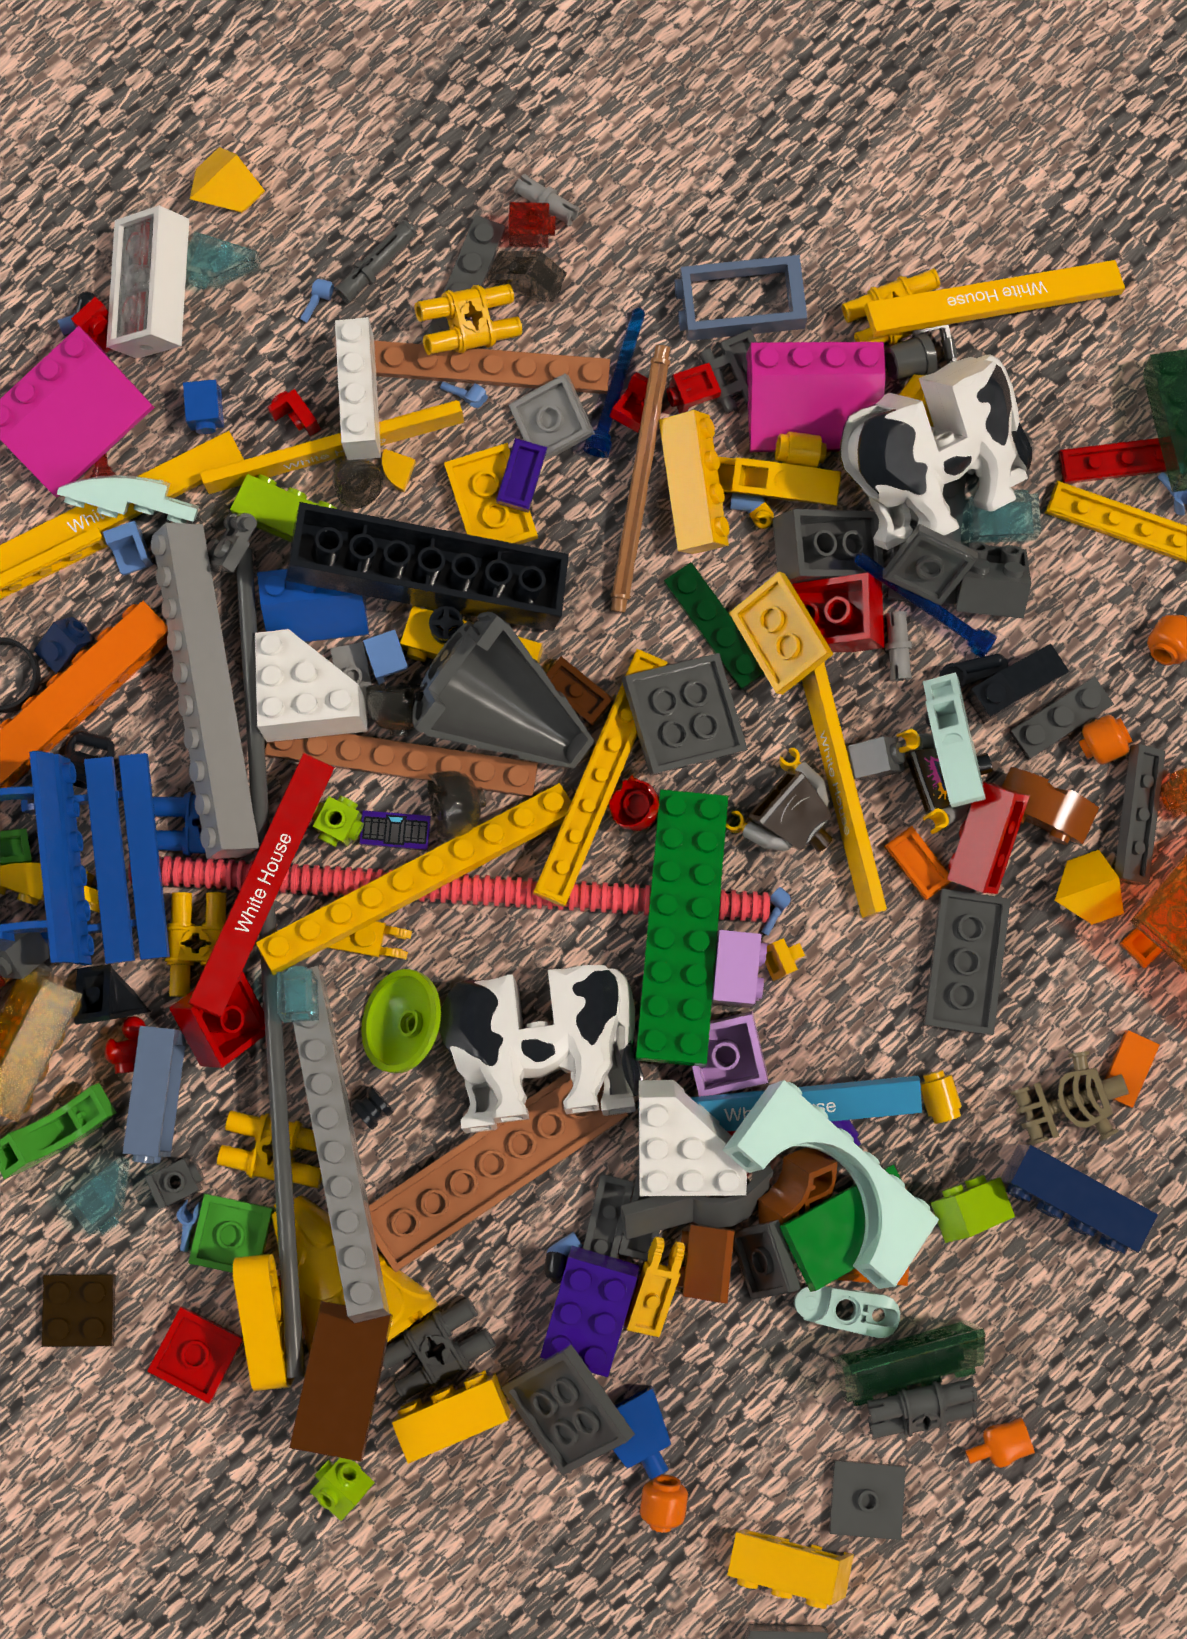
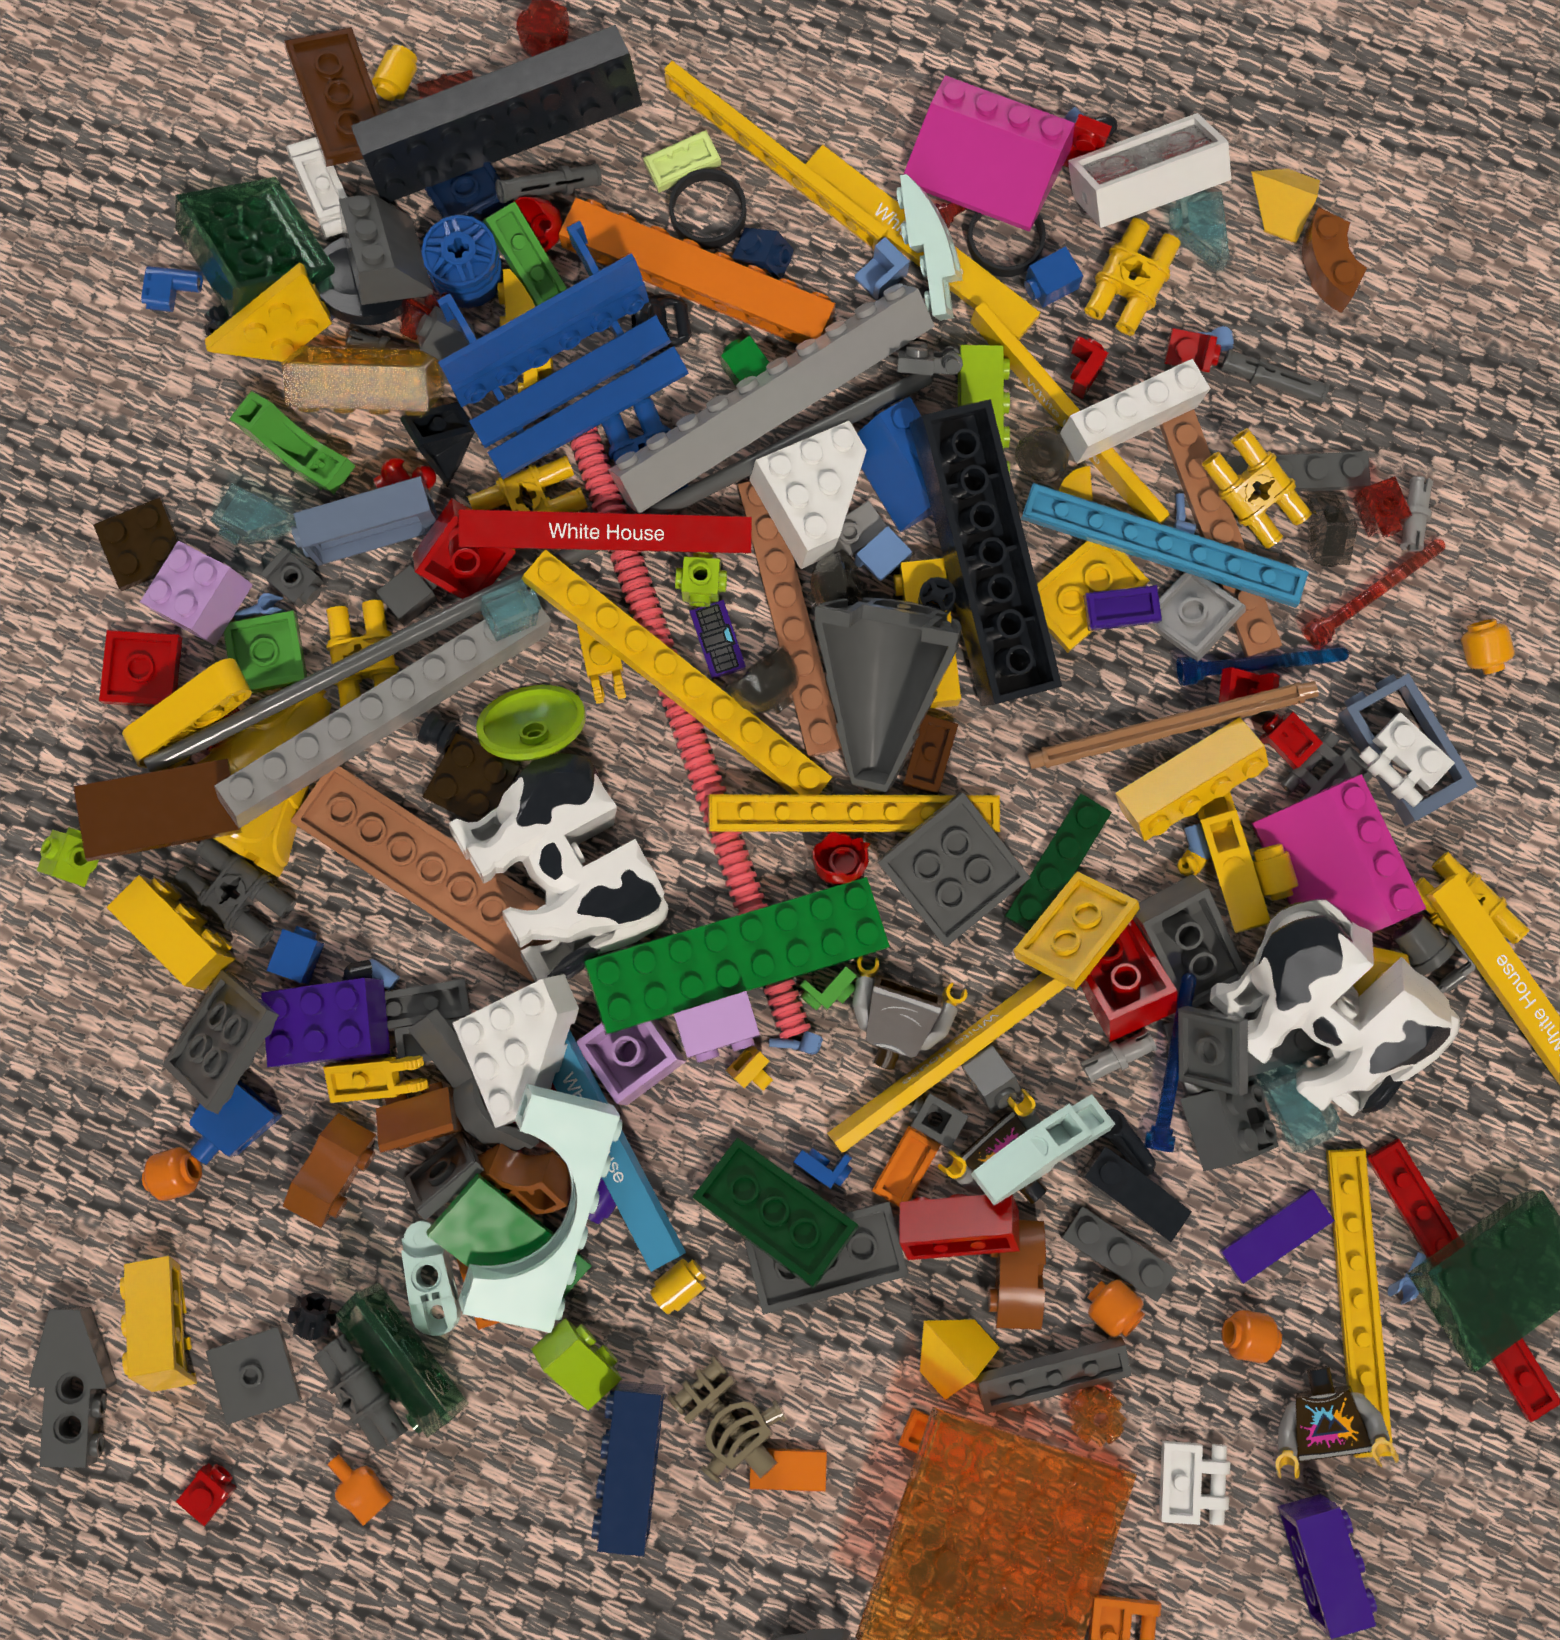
camera: 65 degrees right, 0 degrees up
(150, 1274) = (196, 593): none -> lavender brick
(158, 702) = (743, 360): none -> green brick
(176, 447) = (998, 270): none -> black tyre
(225, 352) = (1148, 283): none -> yellow pin
(235, 1085) = (408, 595): none -> dark grey brick
(295, 170) = (1329, 260): none -> dark orange brick
(319, 318) = (1187, 345): none -> red bracket
(427, 1098) = (470, 780): none -> dark brown plate
(482, 417) = (1165, 545): none -> dark azure tile
(516, 1315) = (296, 955): none -> blue brick
(611, 322) = (1320, 631): none -> clear red piece
(684, 193) = (1487, 646): none -> light orange head
(718, 1359) = (330, 1170): none -> dark orange brick
(745, 855) = (838, 990): none -> bright green bracket
(751, 293) = (1411, 752): none -> white plate
(839, 1426) = (312, 1316): none -> black gear
(887, 937) = (816, 1165): none -> blue bracket
(899, 810) = (951, 1120): none -> dark grey brick
(913, 987) = (775, 1212): none -> dark green plate
(952, 1580) = (207, 1493): none -> red bracket
(1098, 583) = (1276, 1236): none -> dark purple tile

